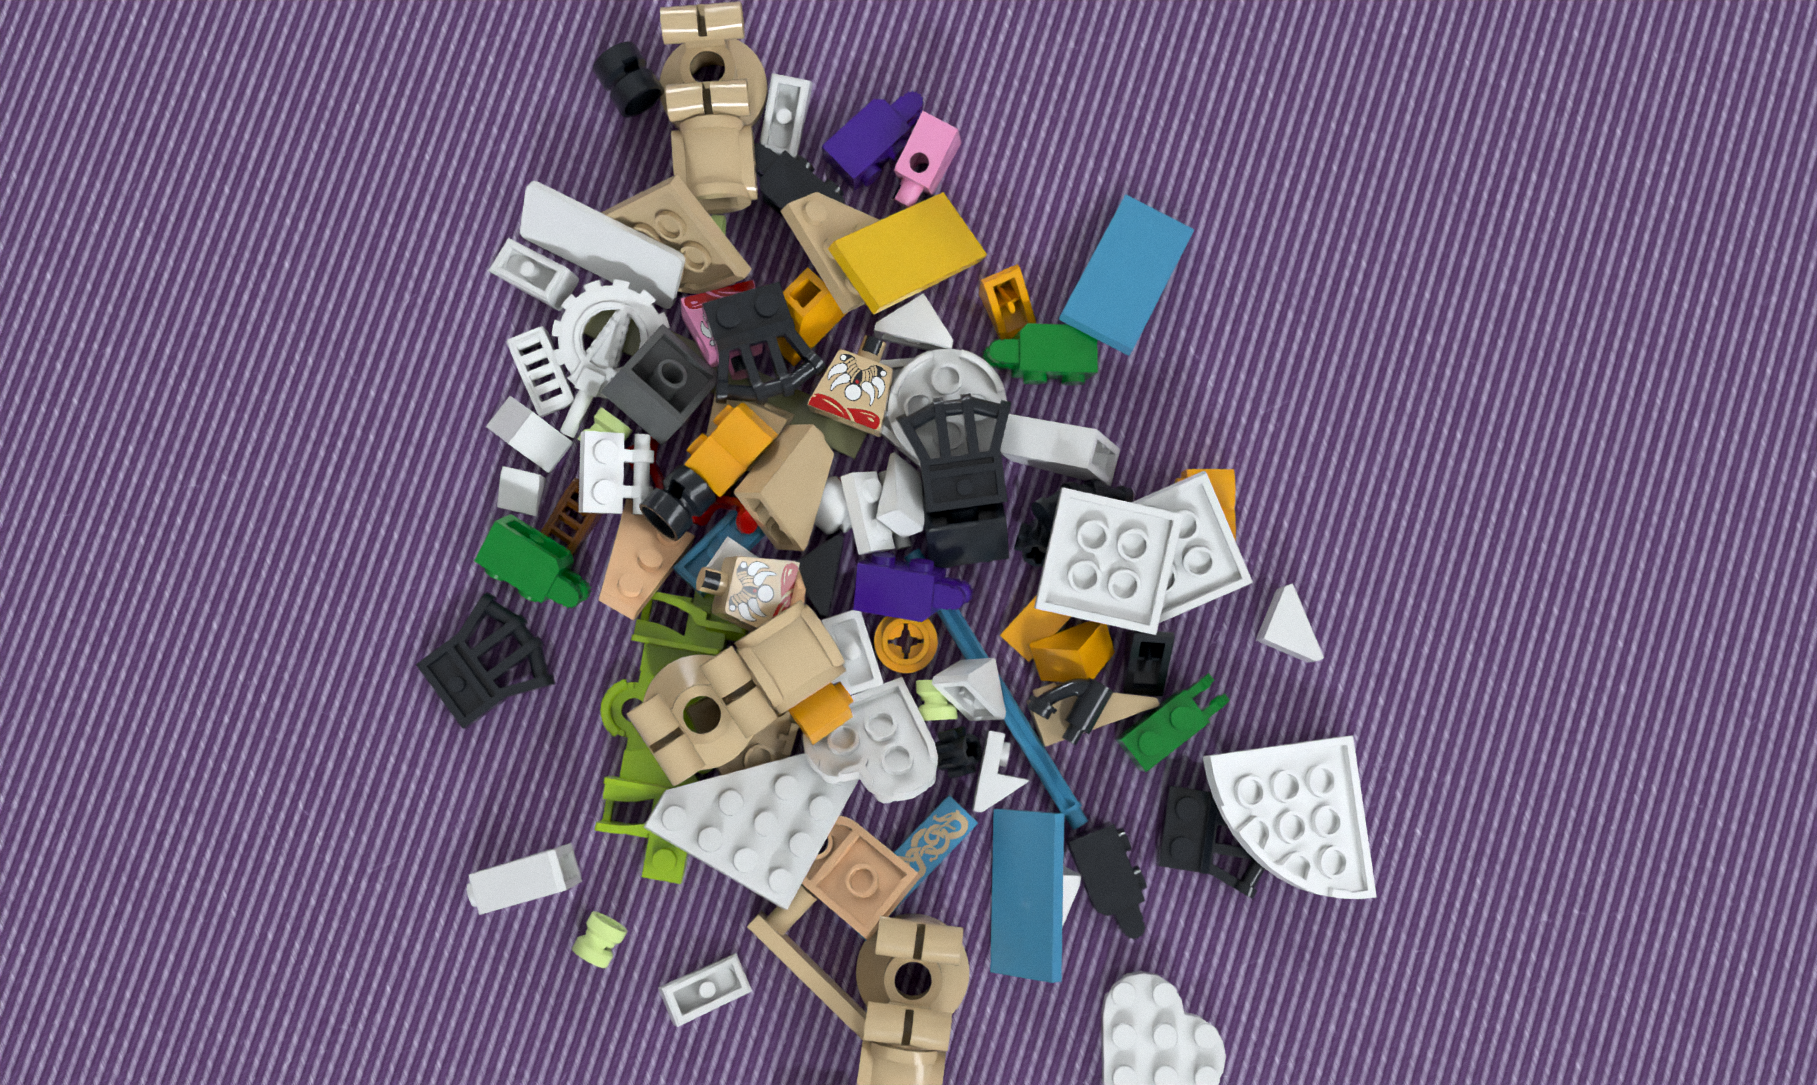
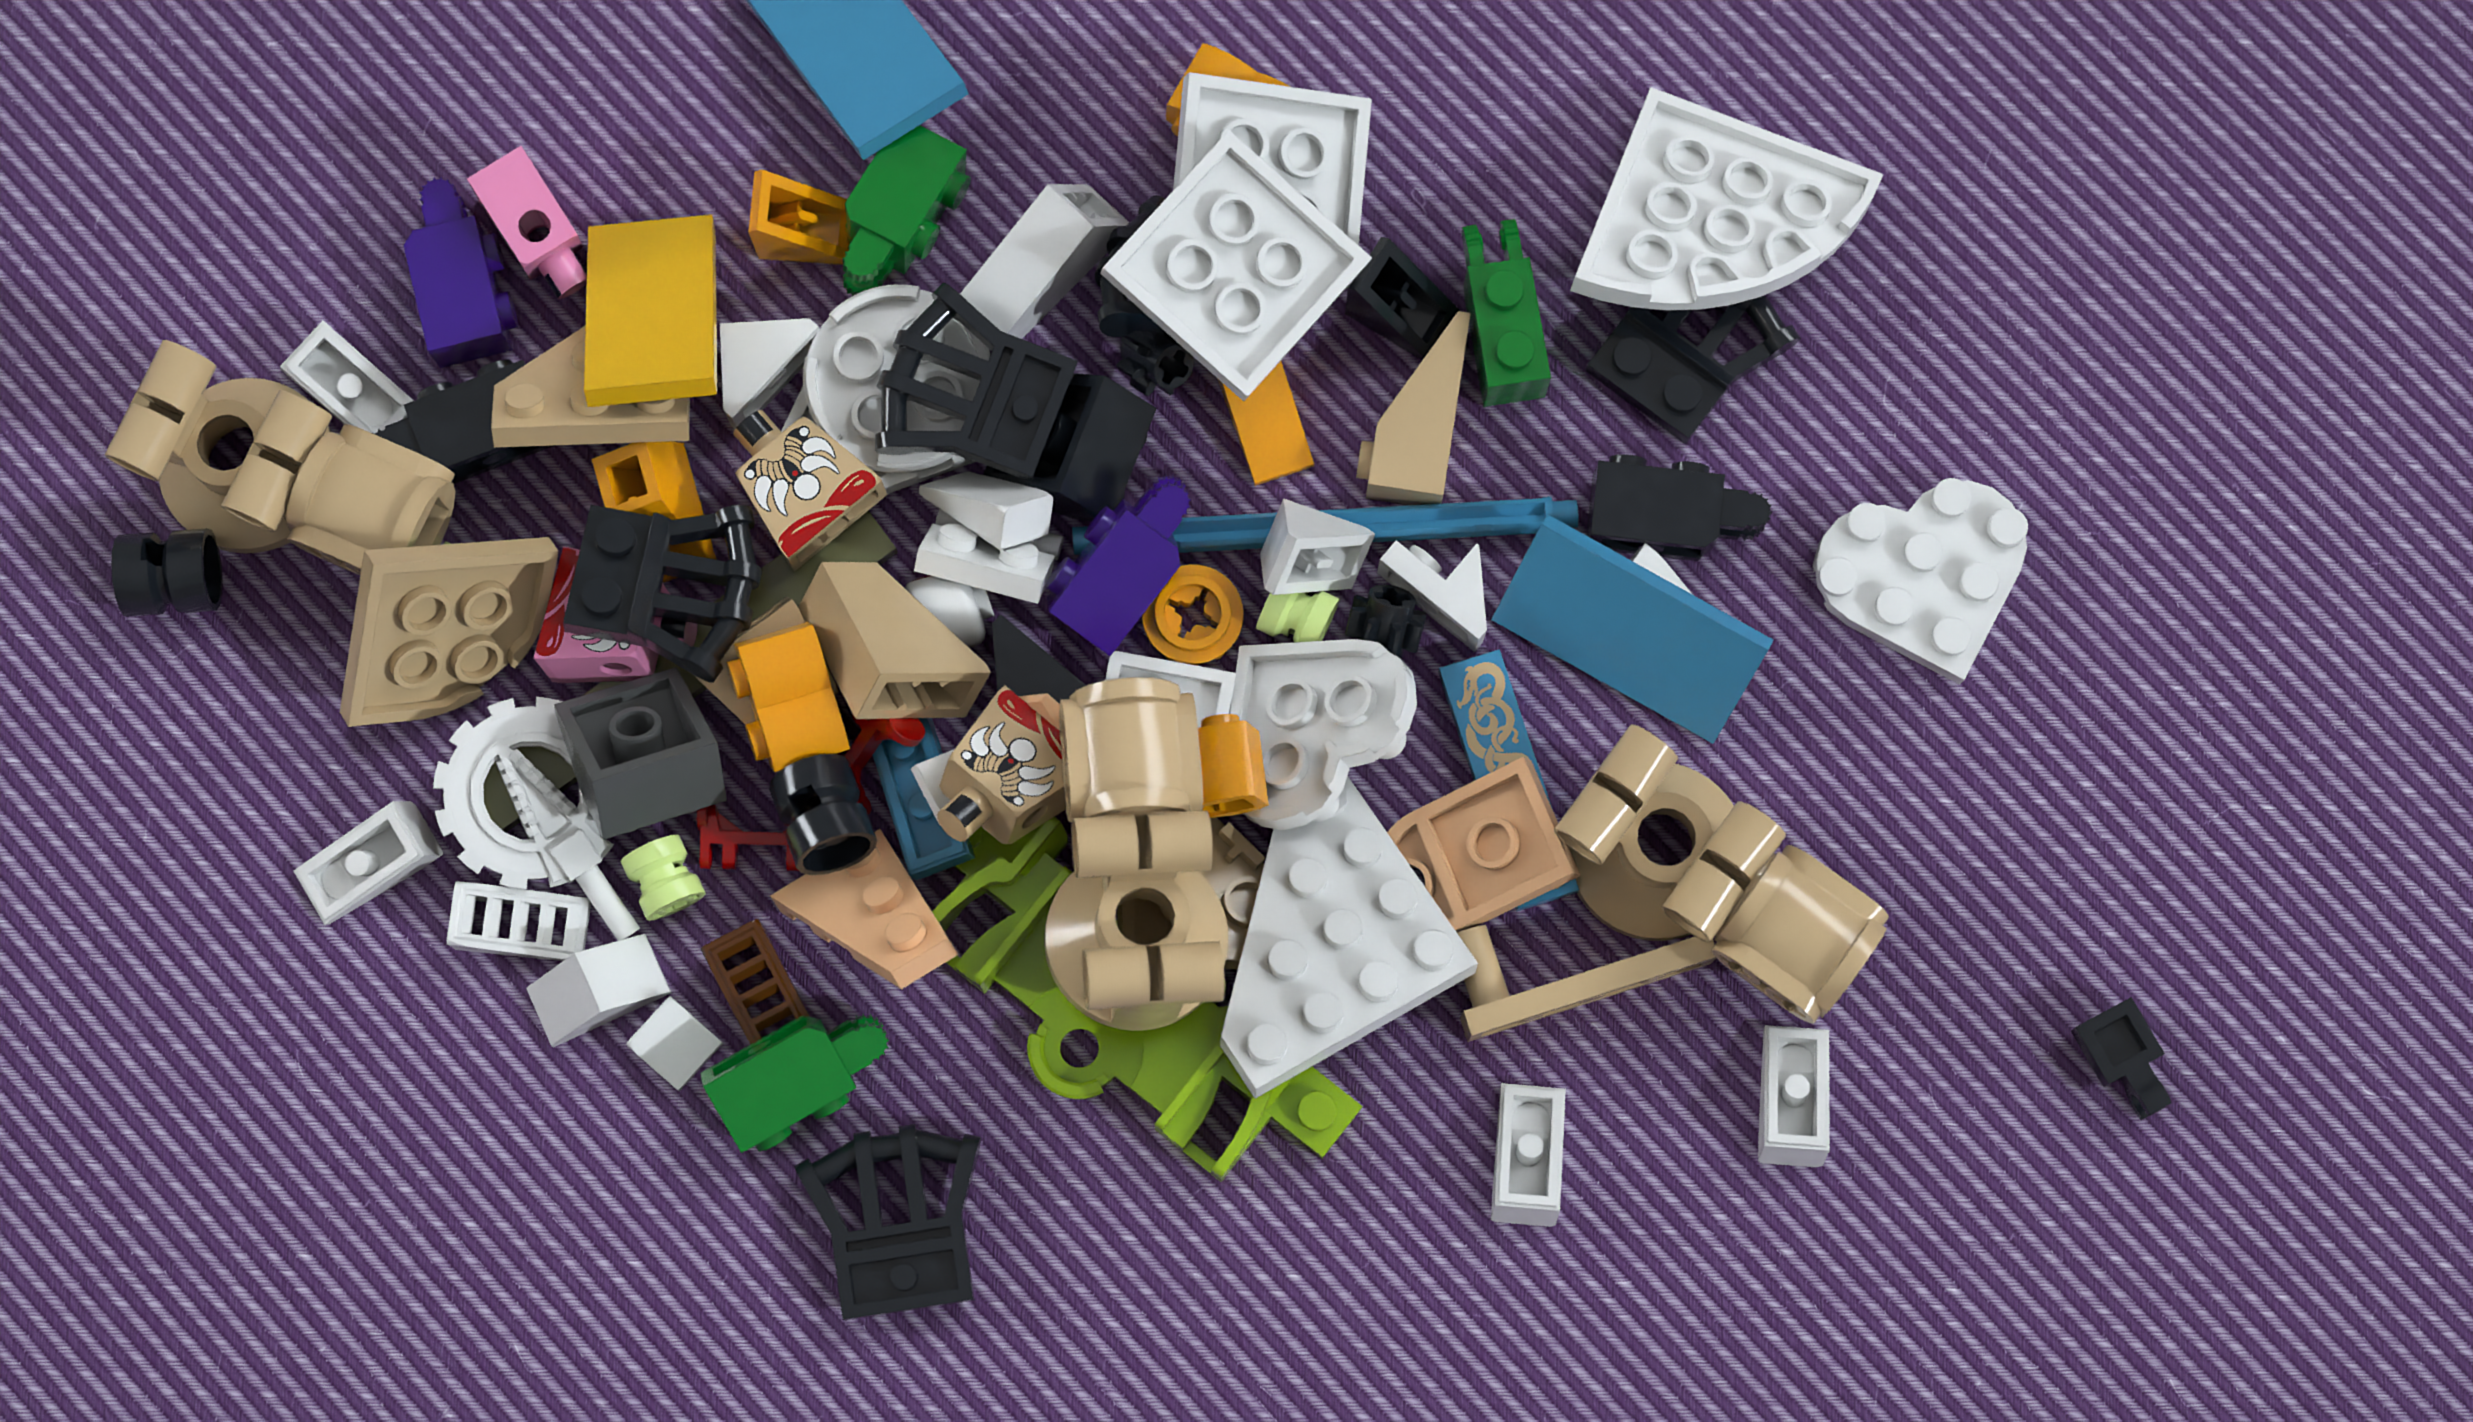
camera: 60 degrees left, 5 degrees down
(524, 879) = (1235, 1323): white slope -> none
(600, 243) = (383, 736): white piece -> none
(600, 937) = (1378, 1260): yellowish green wheel -> none
(602, 472) = (720, 899): white plate -> none
(1073, 652) = (1335, 395): light orange slope -> none
(1086, 710) = (1423, 410): black plant -> none
(1288, 627) = (1458, 91): white slope -> none

